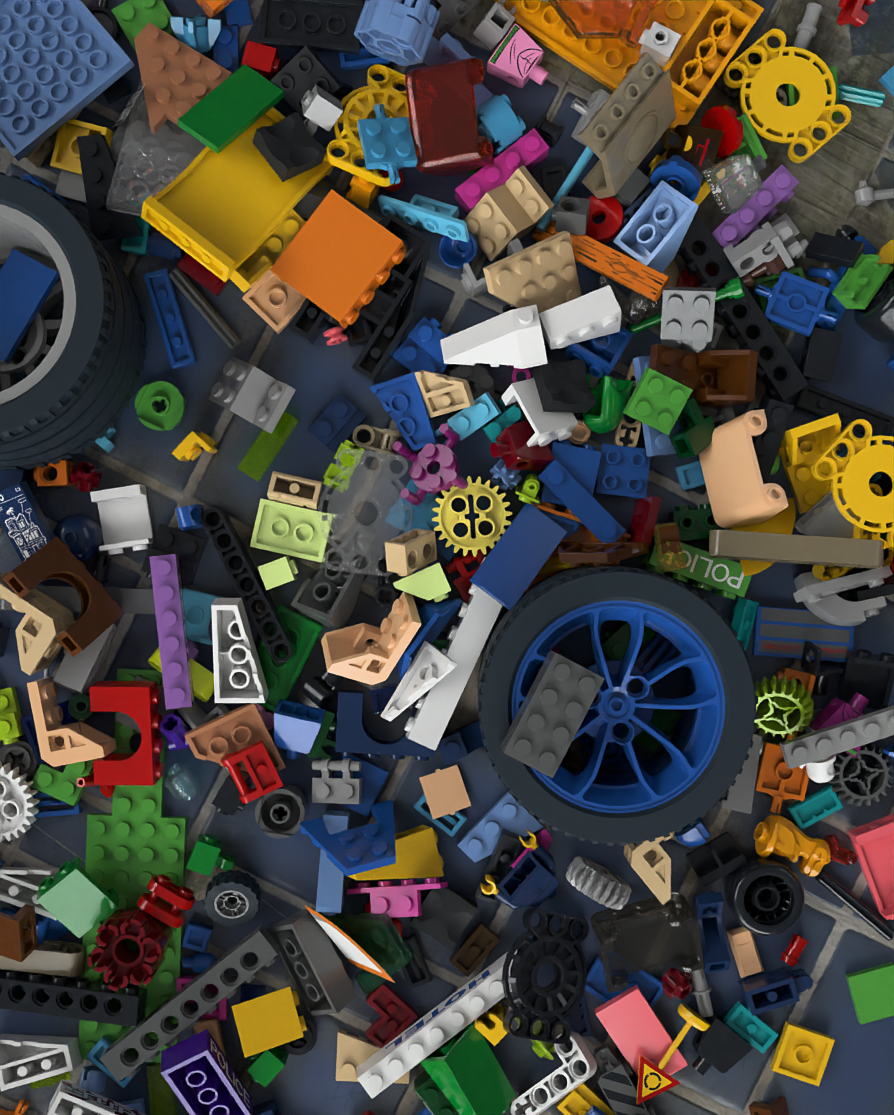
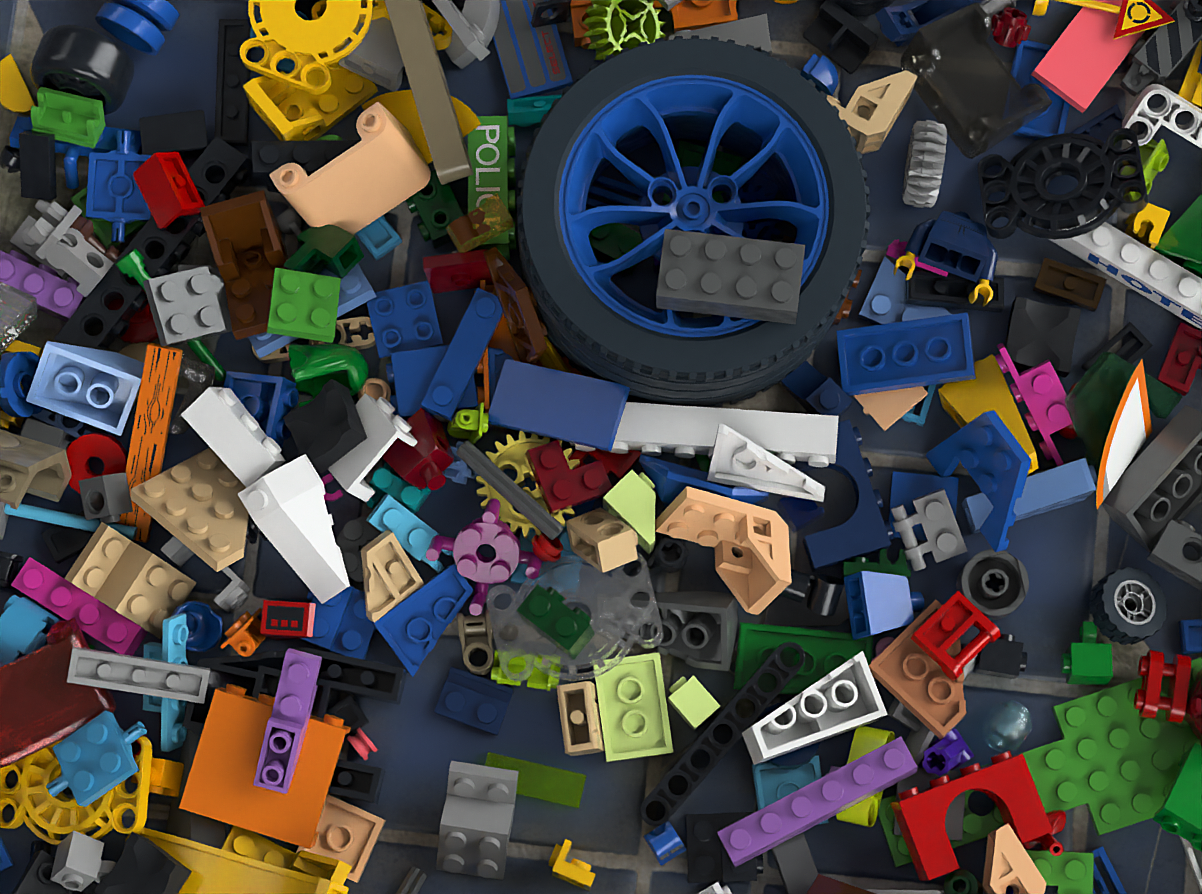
camera: 110 degrees left, 10 degrees down
(358, 282) = (288, 721): none -> medium lavender slope
(359, 498) = (555, 621): none -> dark green brick
(421, 511) = (546, 549): none -> red plate
(433, 190) = (138, 675): none -> light grey plate
(437, 311) = (287, 620): none -> red slope
(438, 280) = (245, 634): none -> orange hinge
(459, 537) = (560, 485): none -> dark red plate
(465, 815) = (906, 354): none -> blue plate
(470, 499) = (509, 490): none -> dark grey axle
(781, 335) = (167, 188): none -> red panel

